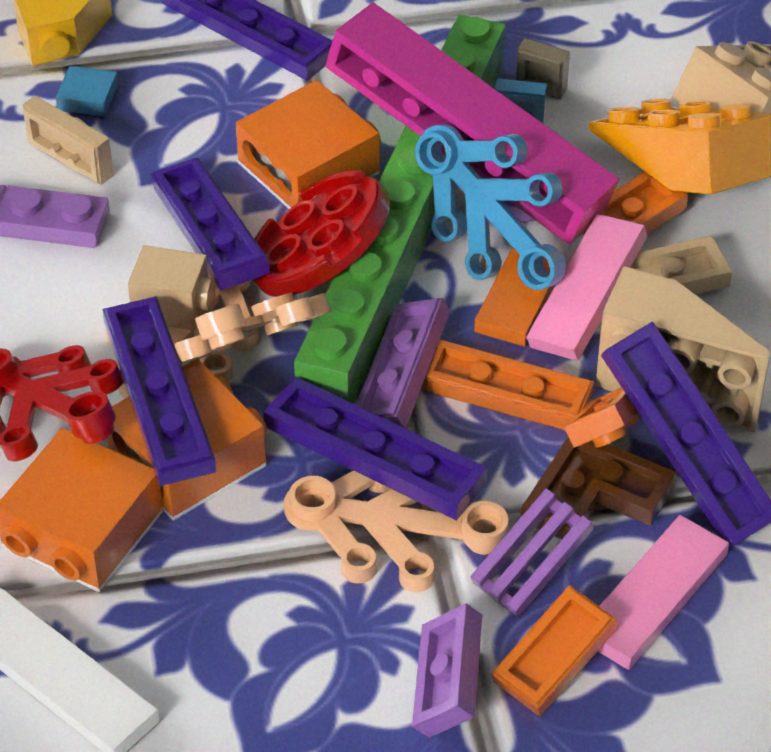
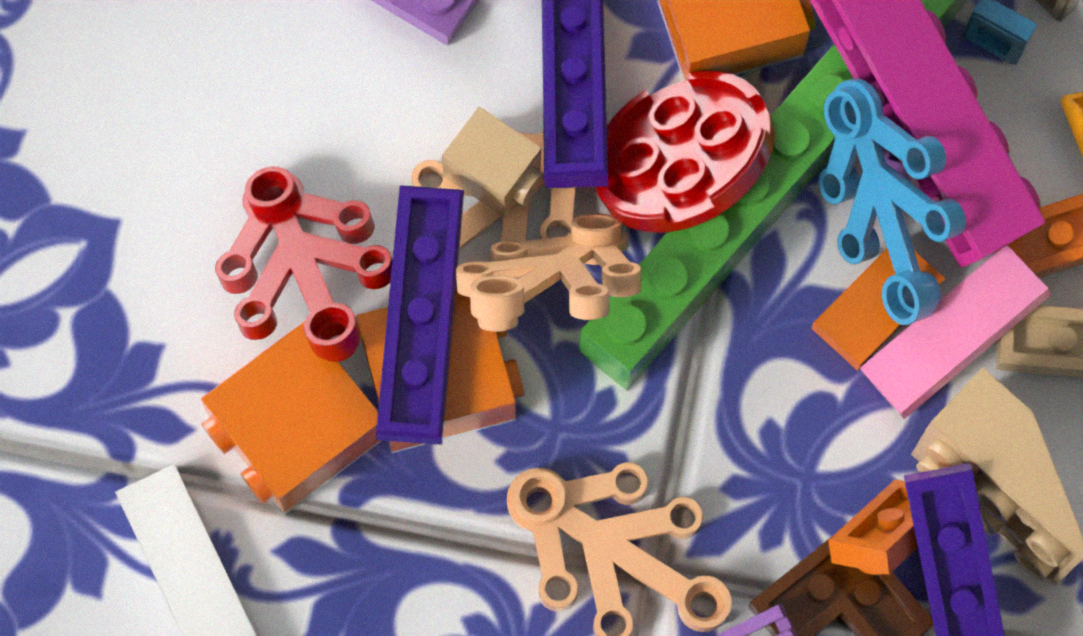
camera: 20 degrees right, 25 degrees up
(376, 448) = (627, 466): dark purple plate -> none
(403, 359) = (705, 354): medium lavender tile -> none
(506, 385) = (812, 420): orange tile -> none

